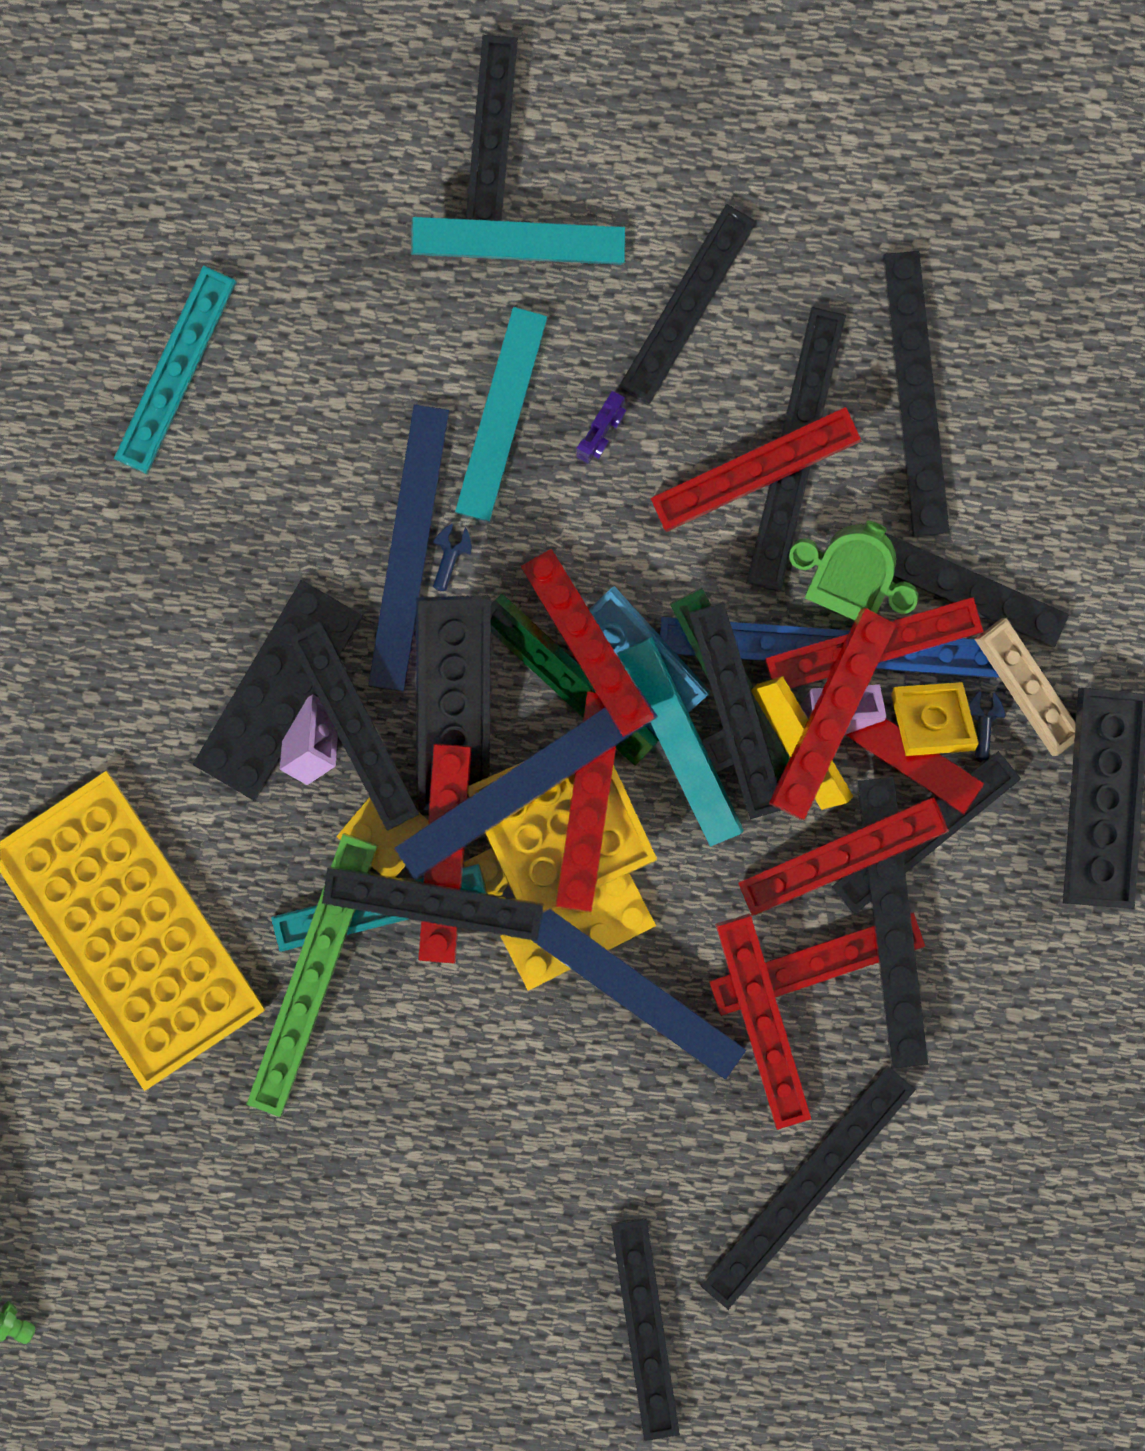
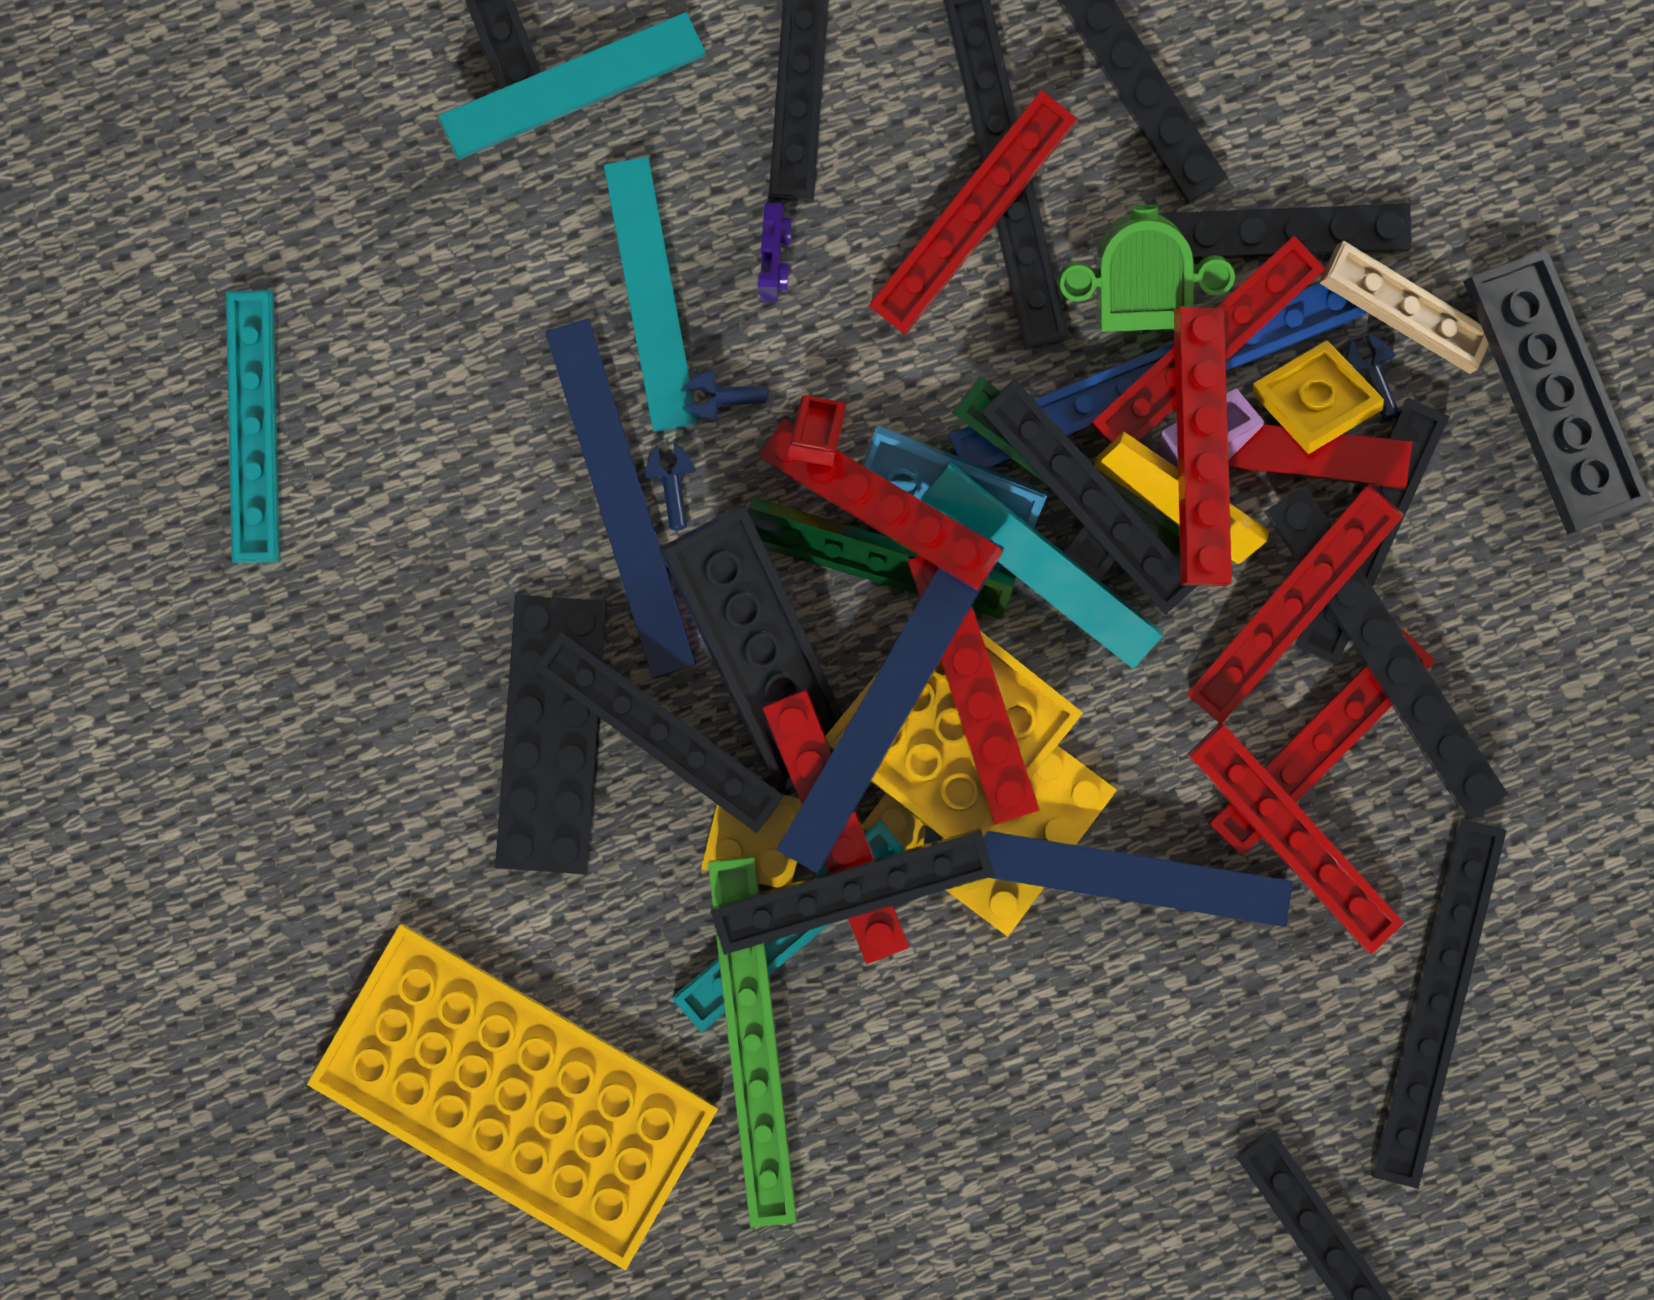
camera: 20 degrees left, 0 degrees up
(309, 744) = (618, 777): lavender slope -> none
(515, 511) = (720, 396): none -> dark blue bar
(569, 568) = (817, 430): none -> red tile

